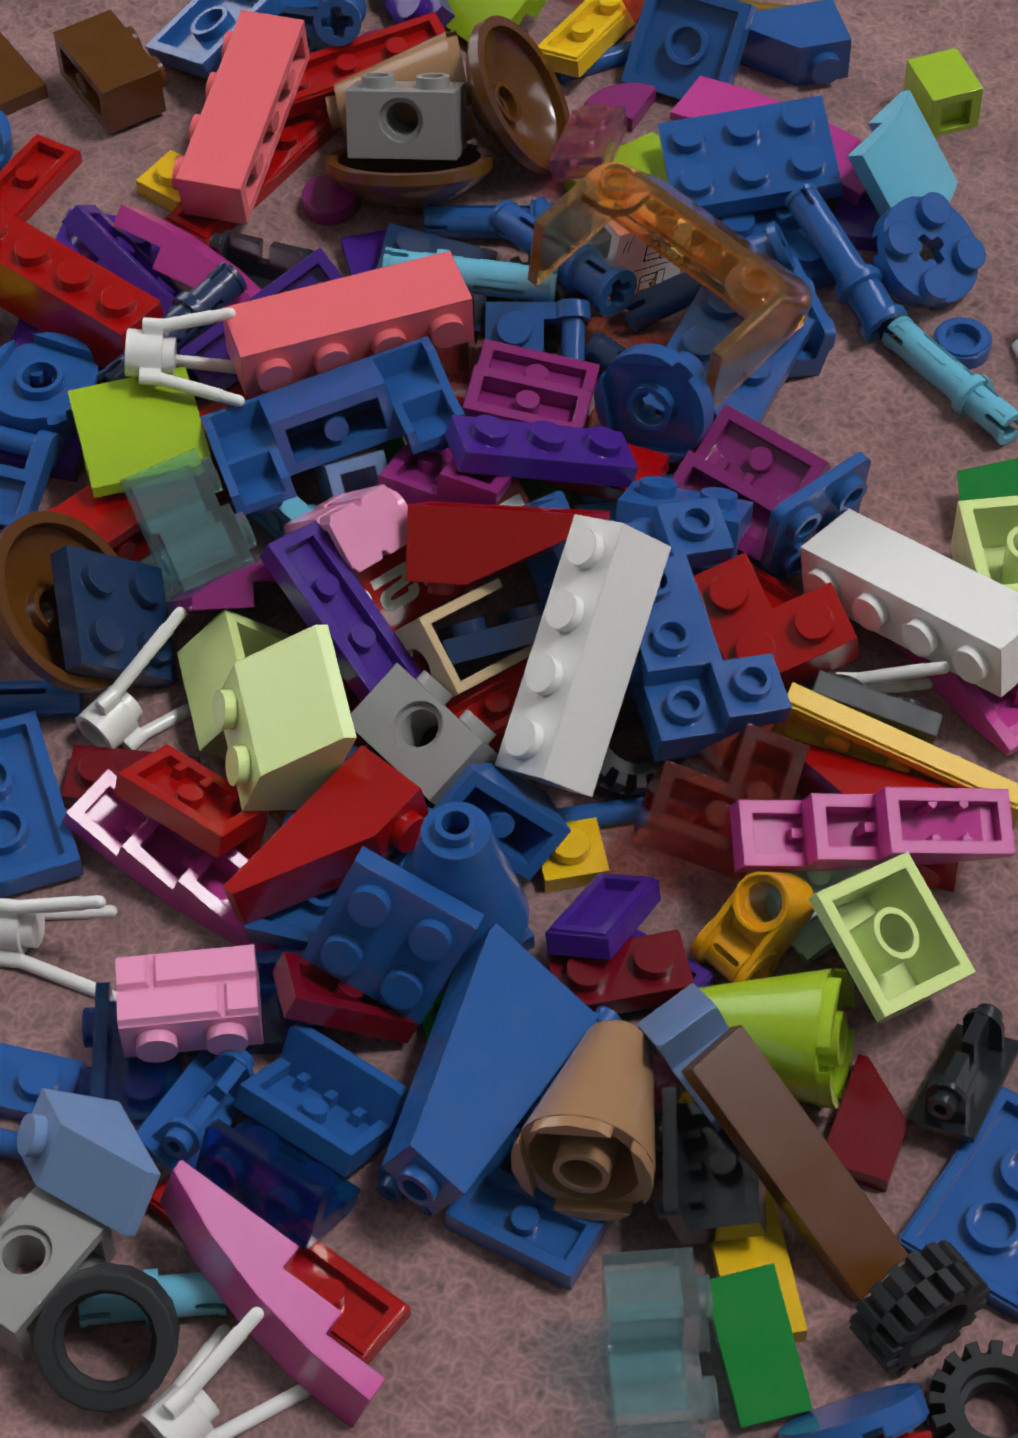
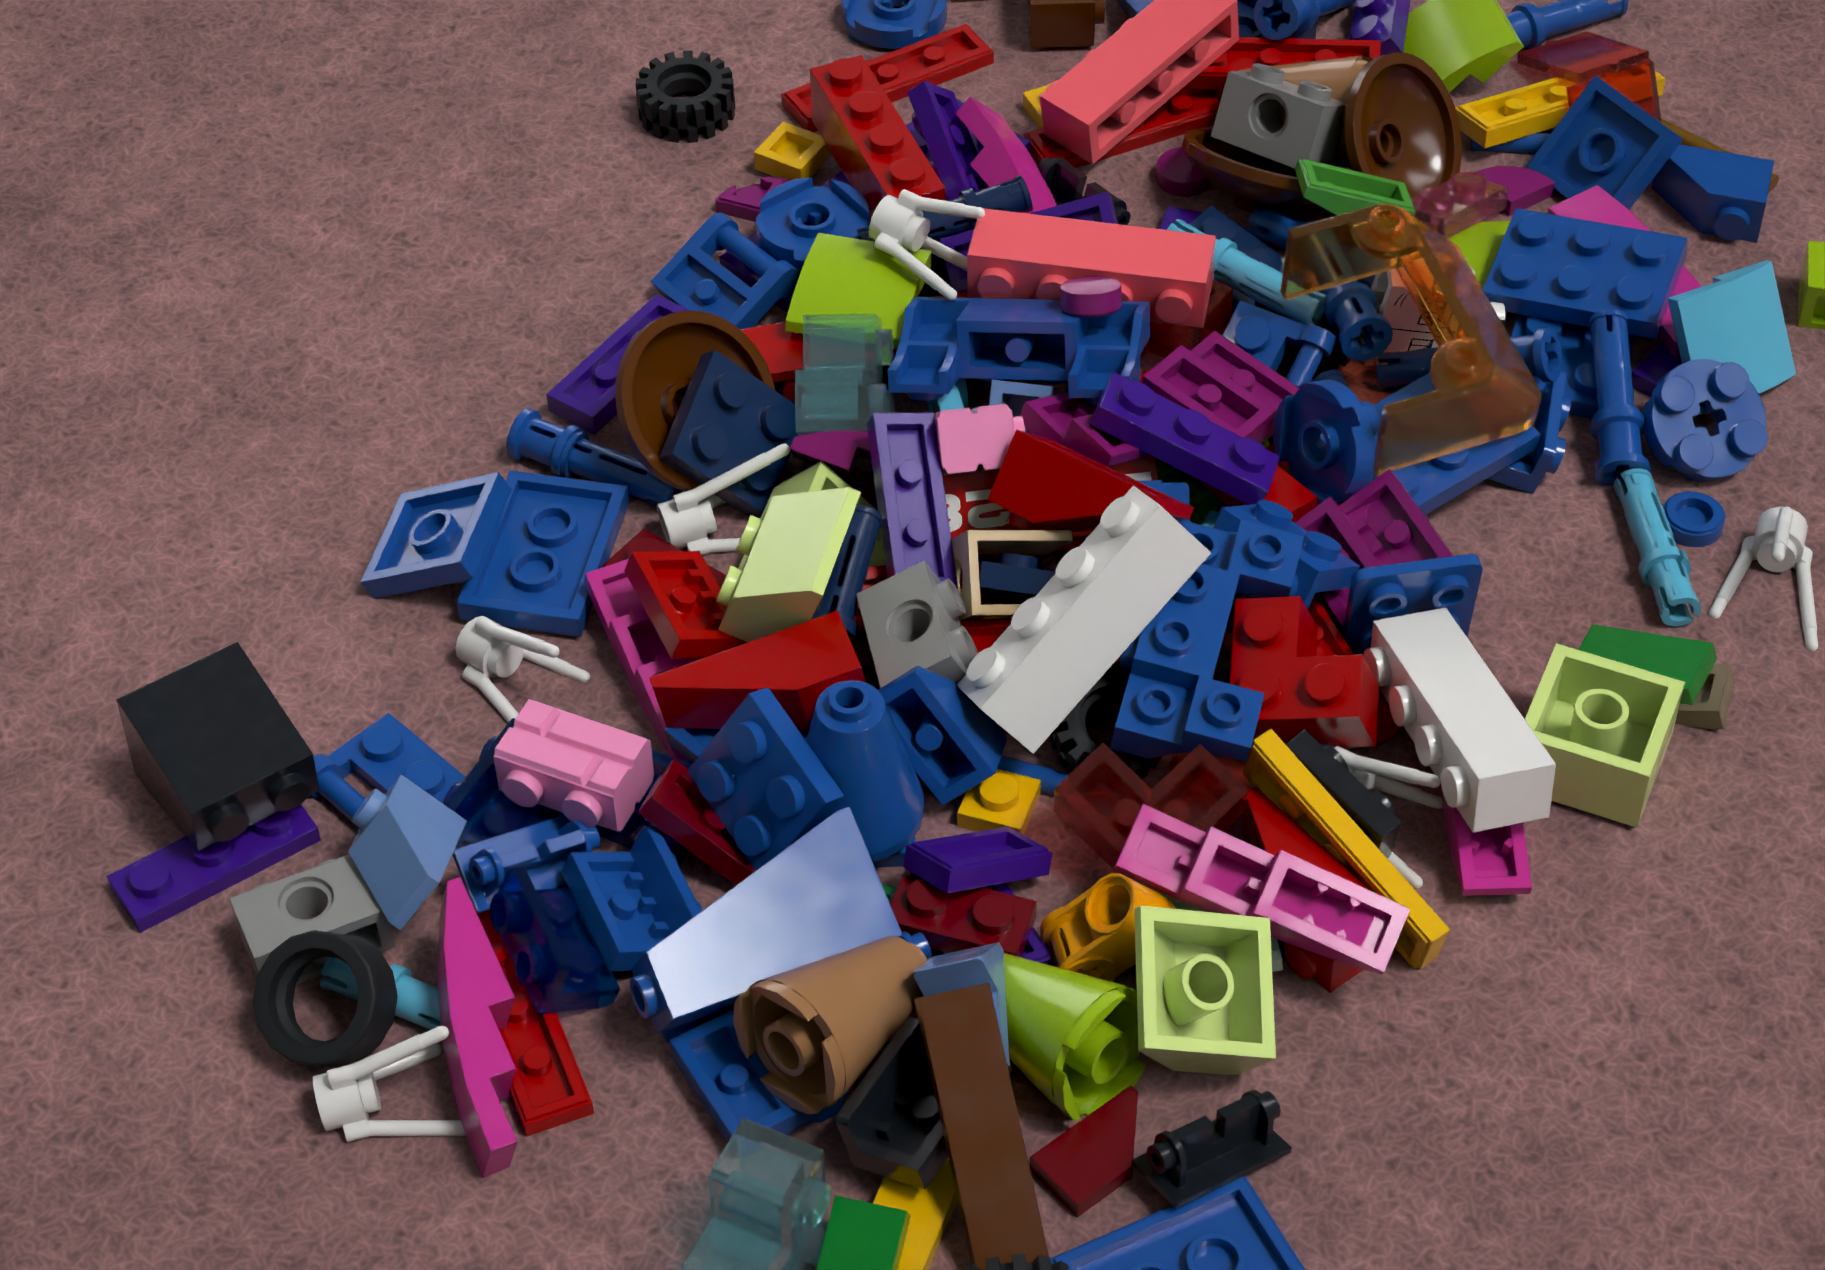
camera: 30 degrees right, 5 degrees down
(379, 351) = (1091, 296): none -> magenta tile
(526, 165) = (1348, 190): none -> bright green slope

